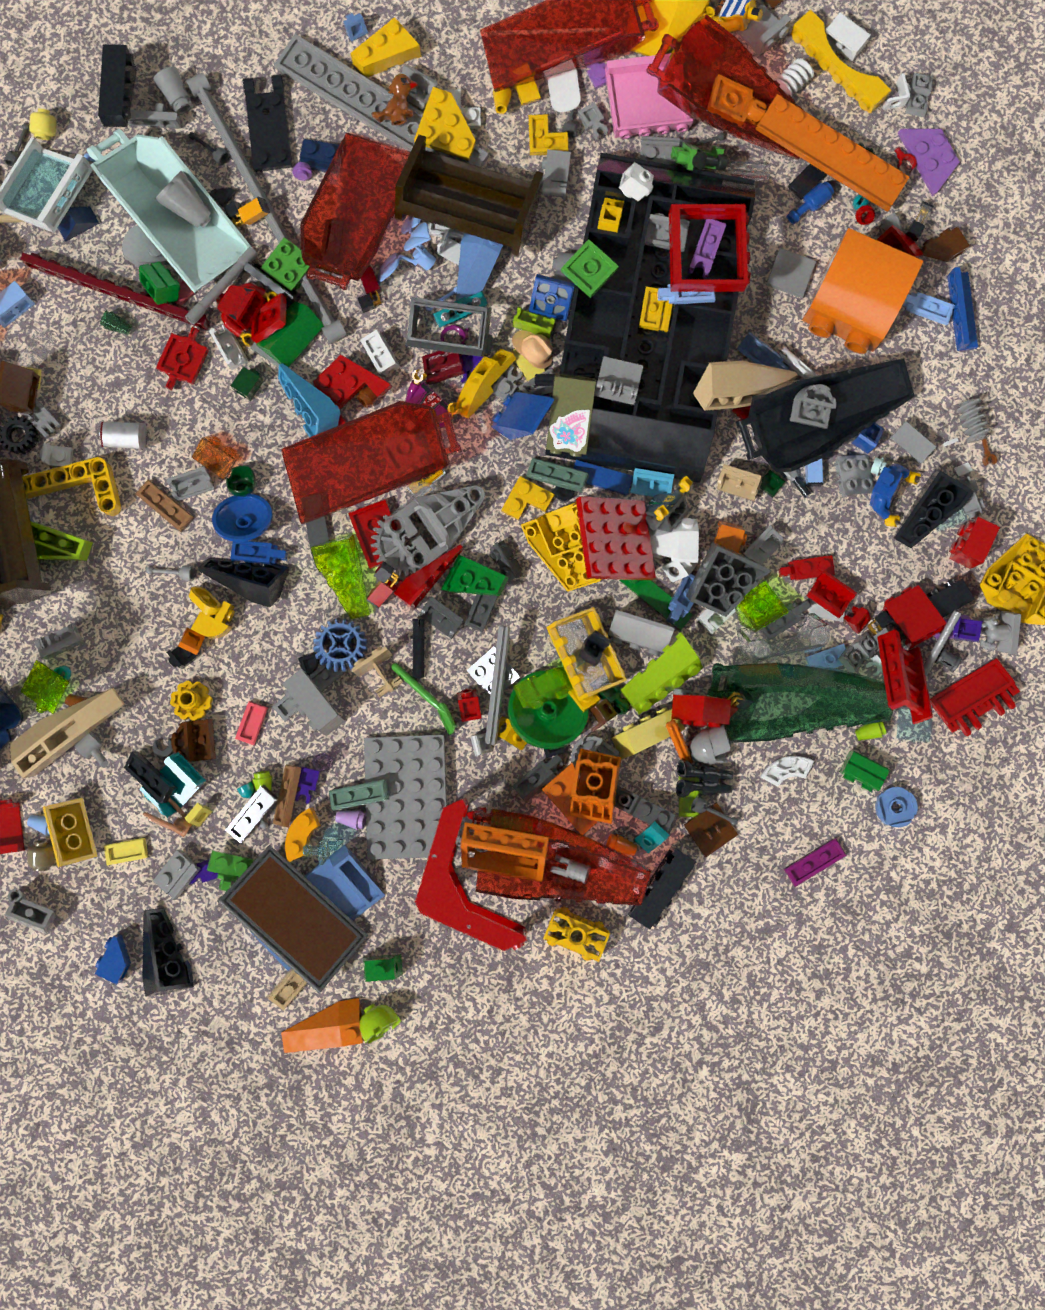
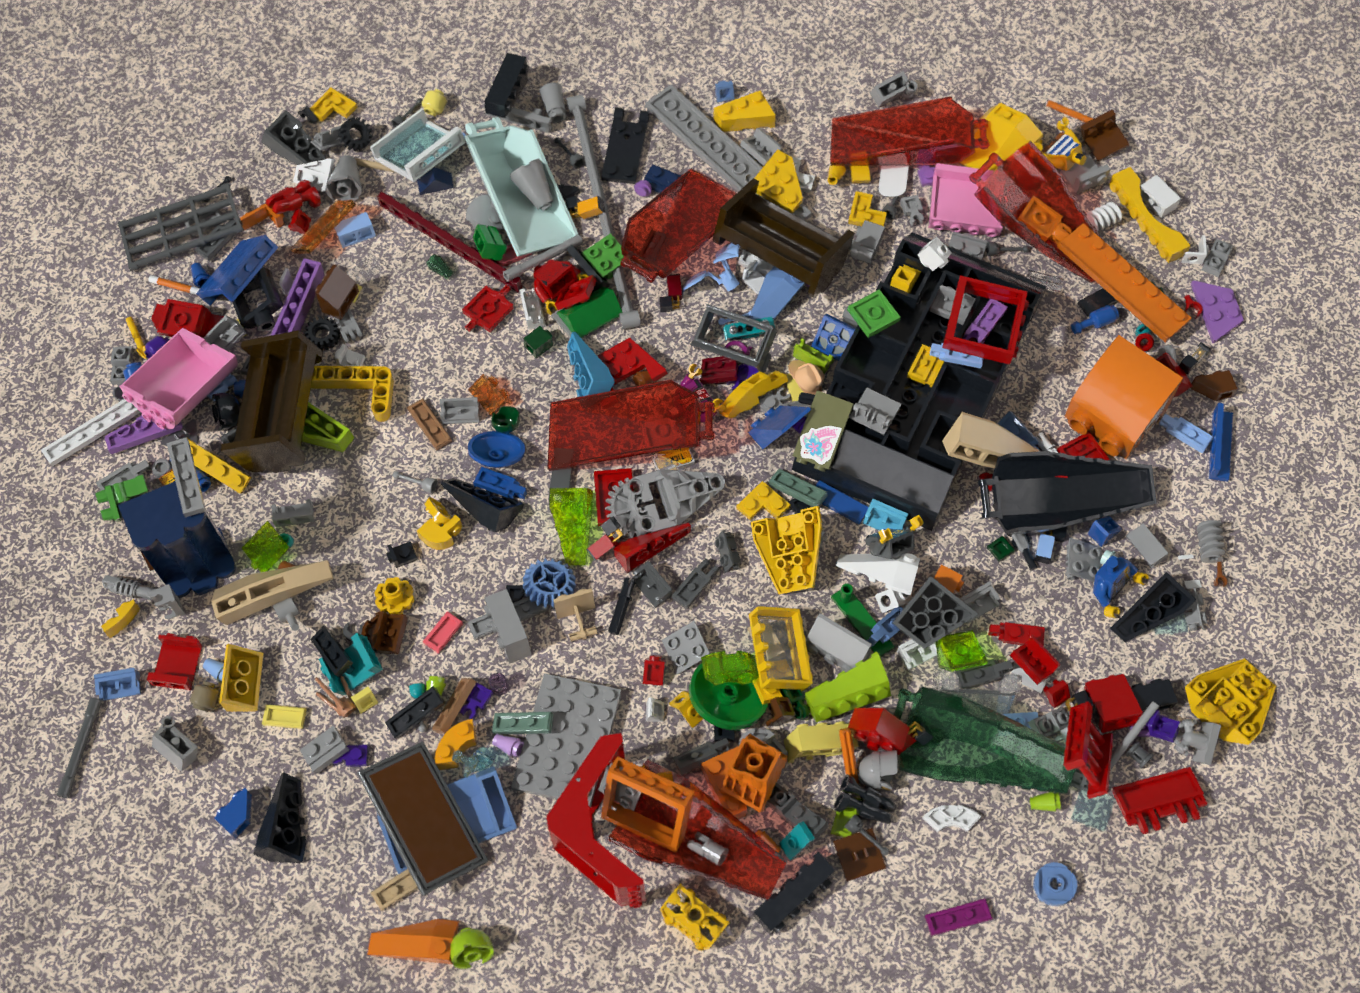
camera: 20 degrees right, 20 degrees down
(123, 435) = (414, 355): flat silver piece -> none
(191, 641) = (413, 543): orange tile -> none
(228, 867) = (373, 751): bright green hinge -> none
(380, 352) = (665, 346): white hinge -> none
(382, 967) = (492, 893): green torso -> none
(397, 107) = (741, 158): dark orange animal -> none
(443, 710) = (628, 669): bright green piece -> none
(473, 578) = (692, 556): green wing -> none
(497, 684) = (686, 656): light grey axle -> none
(593, 648) = (789, 643): black bracket -> none
(615, 538) = (836, 548): plate -> none
(692, 156) = (999, 257): hips -> none
(739, 482) = (969, 538): tan hinge -> none
(790, 273) = (1063, 373): light grey tile -> none
(813, 406) = (1055, 486): light grey slope -> none
(829, 356) = (1083, 446): none -> red wing
(863, 770) = (1029, 839): green brick -> none
(973, 542) = (1186, 648): red brick -> none

